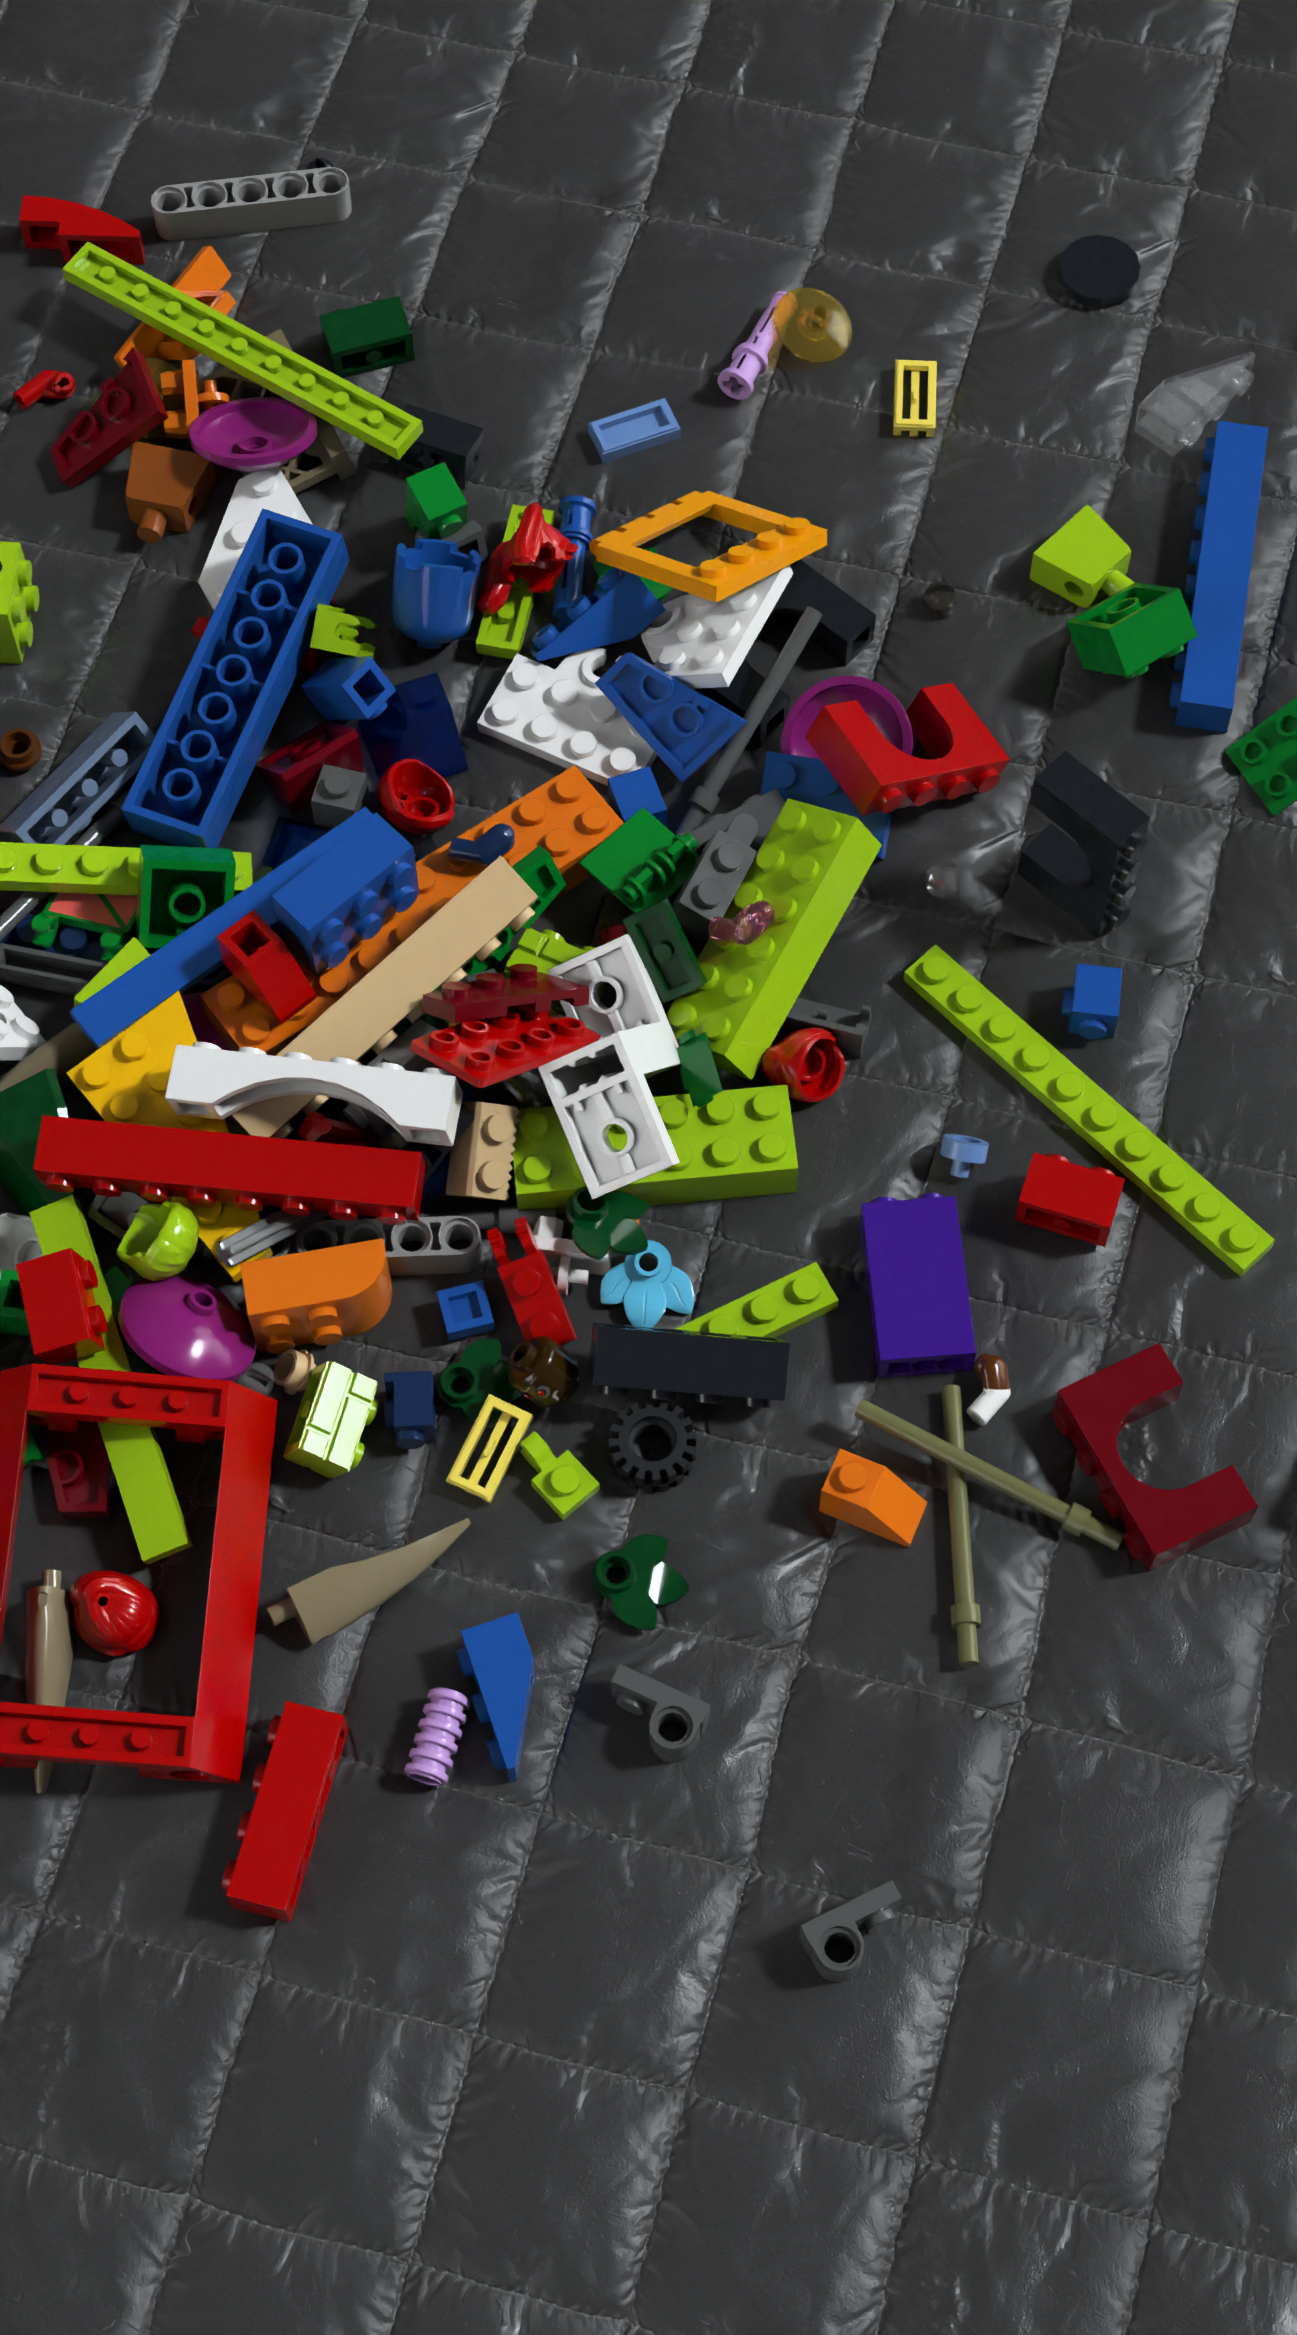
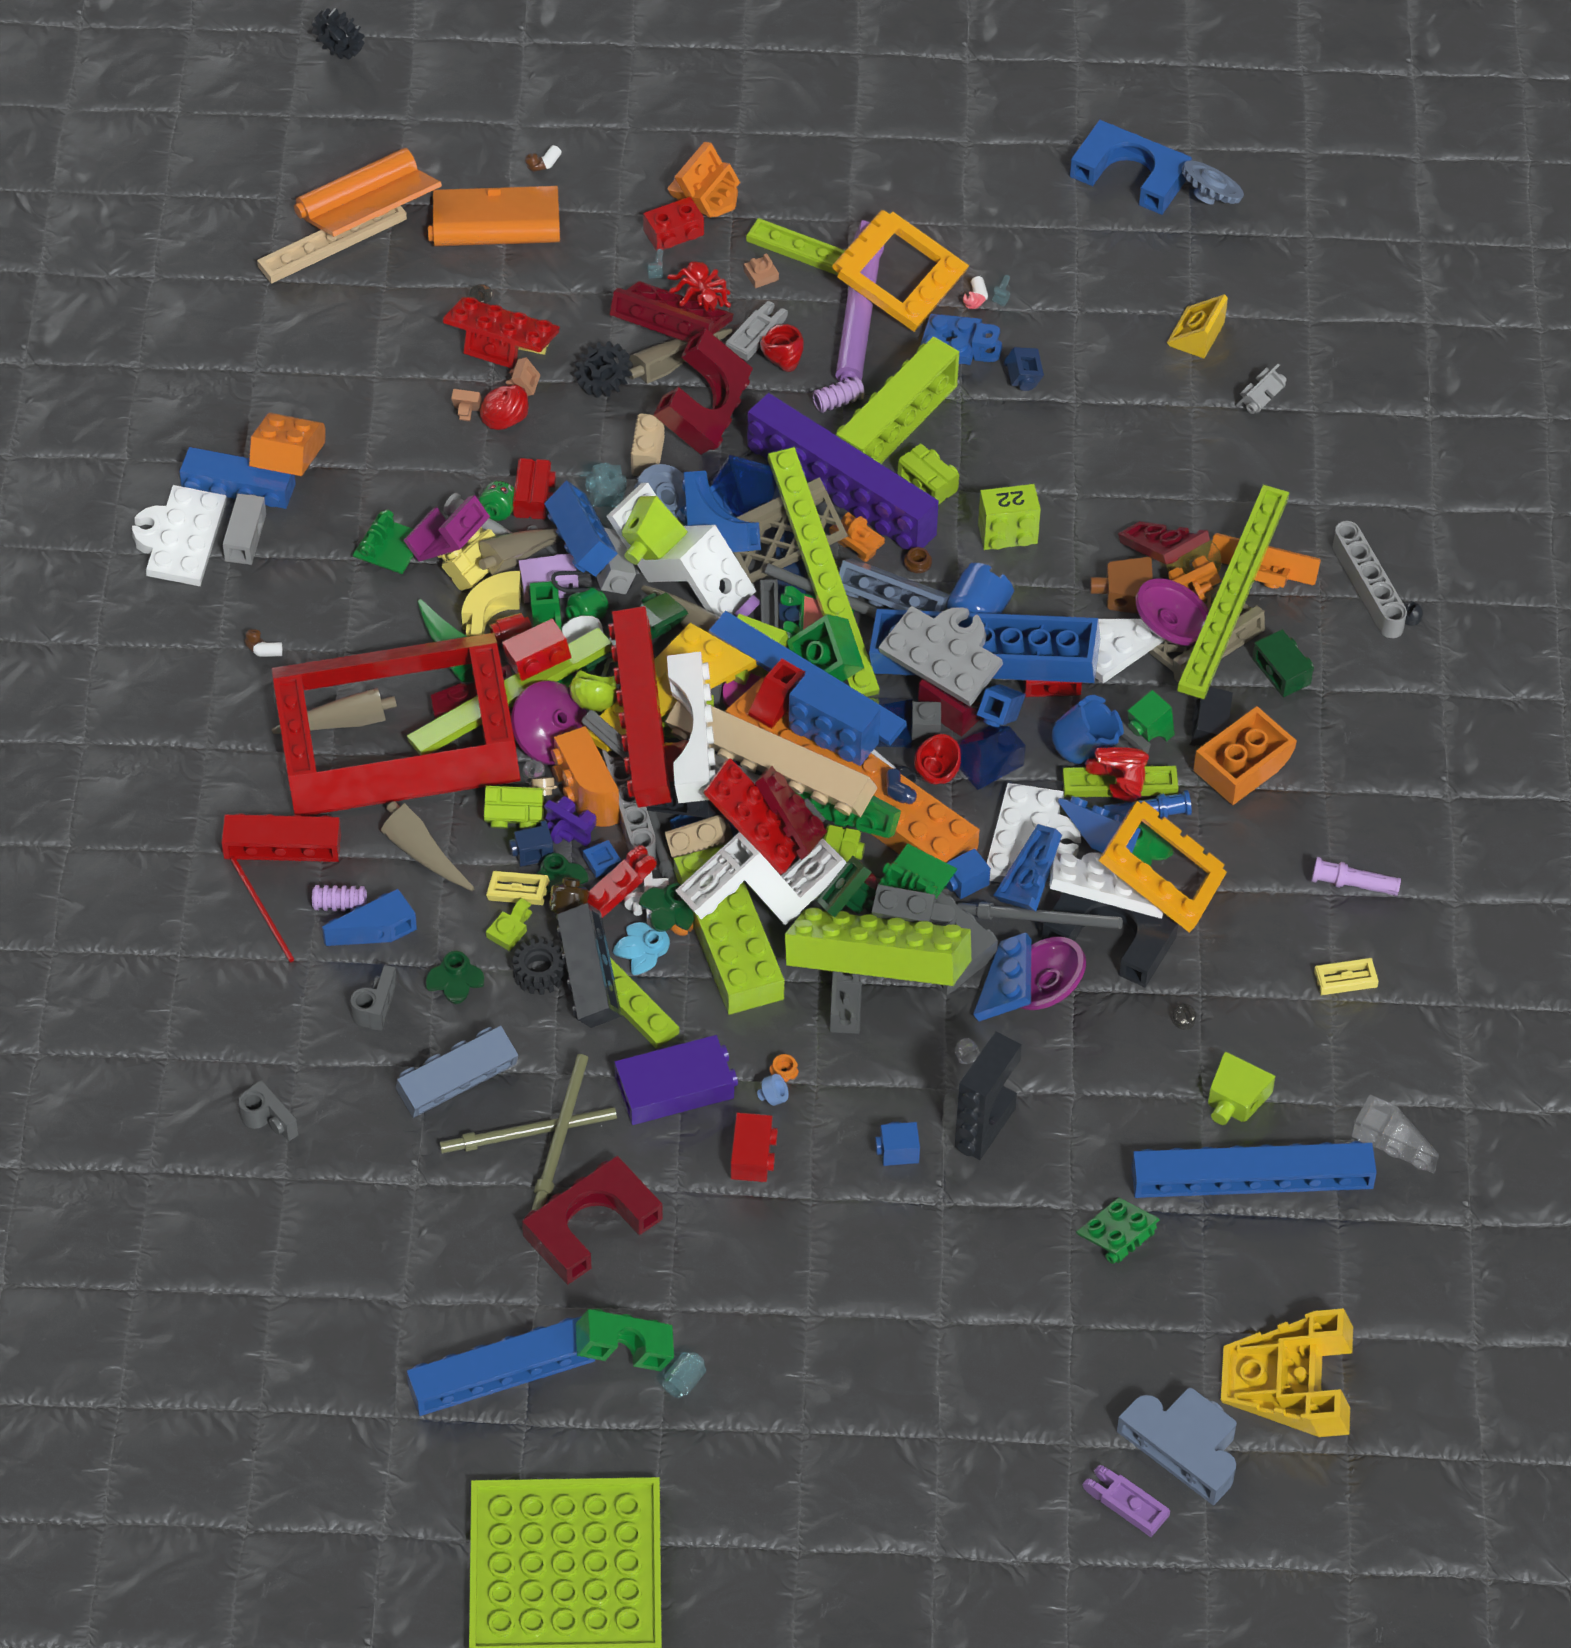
camera: 75 degrees right, 10 degrees down
(35, 999) = (748, 606): none -> medium lavender tile
(45, 385) = (1190, 508): red arm -> none
(69, 225) = (1312, 493): red slope -> none
(124, 1620) = (379, 734): red hair -> none
(133, 673) = (981, 591): none -> blue cylinder
(248, 728) = (943, 651): none -> light grey plate
(337, 632) = (1040, 692): lime hinge -> none
(388, 1349) = (566, 825): none -> dark purple hips
(416, 1873) = (262, 909): none -> red piece
(524, 415) = (1244, 755): none -> orange brick
(634, 430) = (1264, 824): medium blue tile -> none
(698, 1068) = (775, 926): green piece -> none
(745, 926) = (869, 919): clear pink arm -> none
(804, 334) = (1378, 918): clear yellow dish -> none
(806, 1063) = (806, 994): red hair -> none
(838, 1608) = (456, 1071): none -> sand blue brick
(871, 1498) = (530, 1078): orange slope -> none
(885, 778) = (1007, 985): red arch -> none
(922, 1119) = (785, 1062): none -> orange plate
(996, 1388) = (619, 1134): arm -> none
(1089, 1111) = (824, 1156): lime plate -> none
(1099, 271) = (1493, 1066): black tile -> none
(1132, 630) = (1179, 1114): green brick -> none

